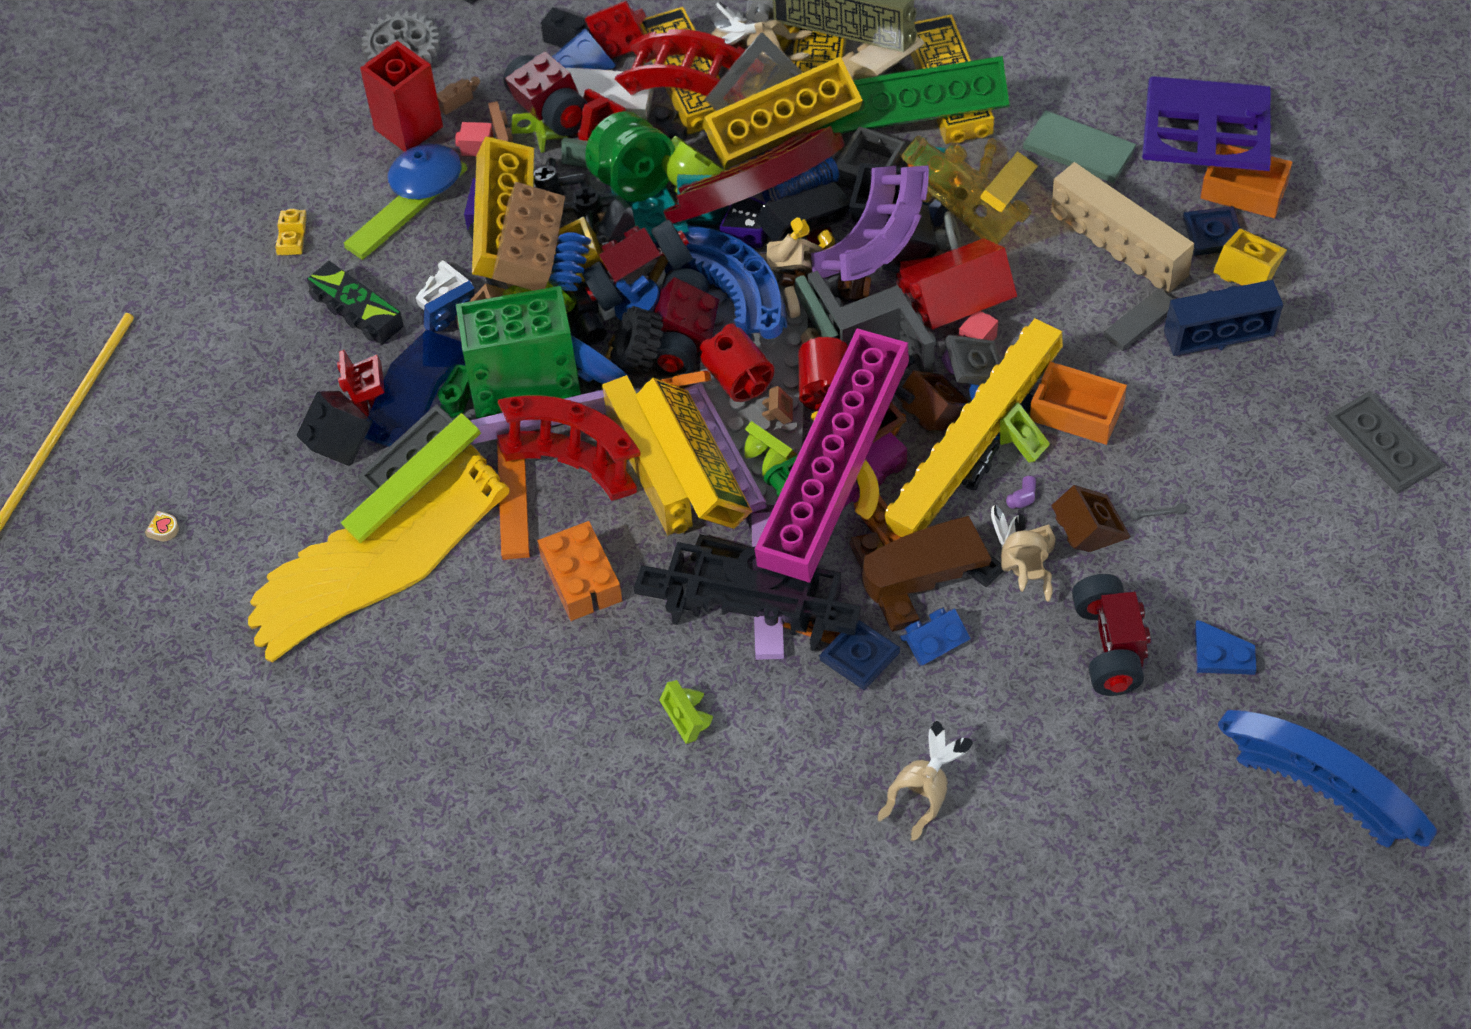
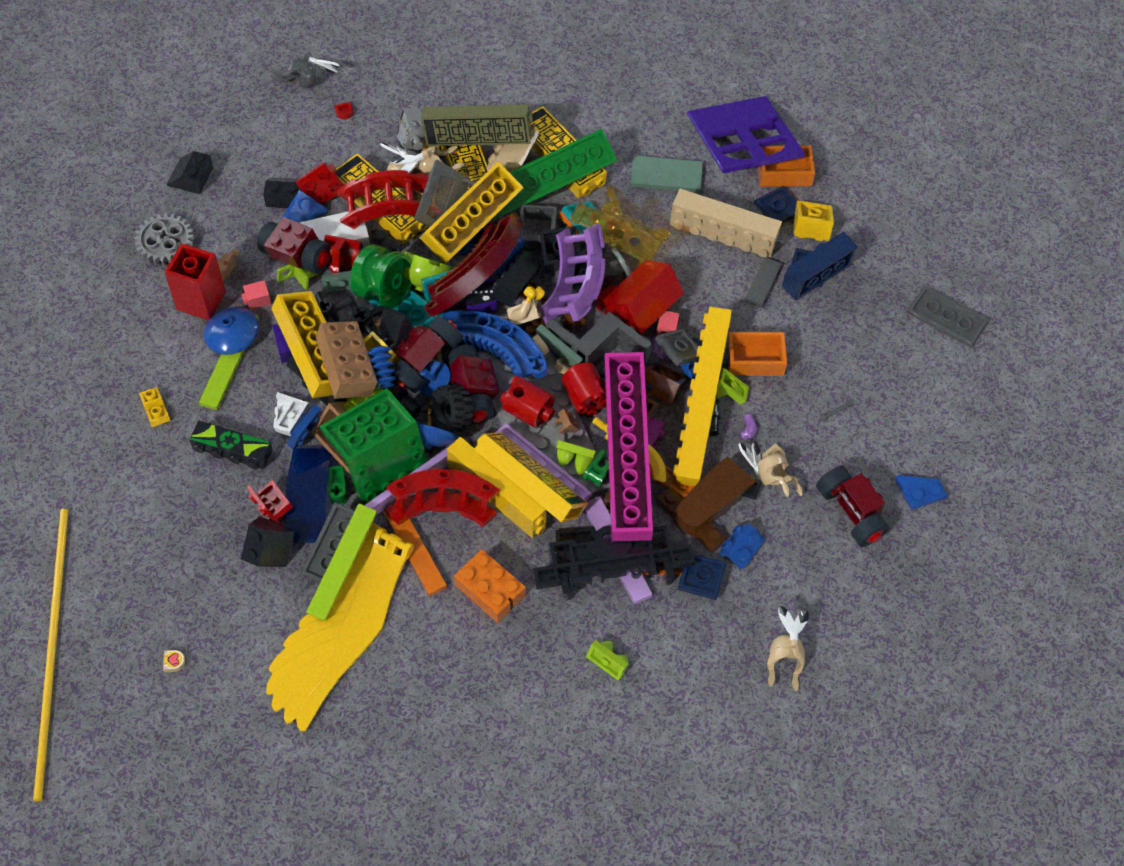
camera: 30 degrees left, 5 degrees up
(499, 121) = (273, 285): nougat hinge -> none
(689, 379) = (494, 427): orange tile -> none
(1008, 182) = (644, 215): yellow tile -> none
(1089, 519) = (799, 431): reddish brown slope -> none
(1328, 769) = (1026, 547): blue gear -> none

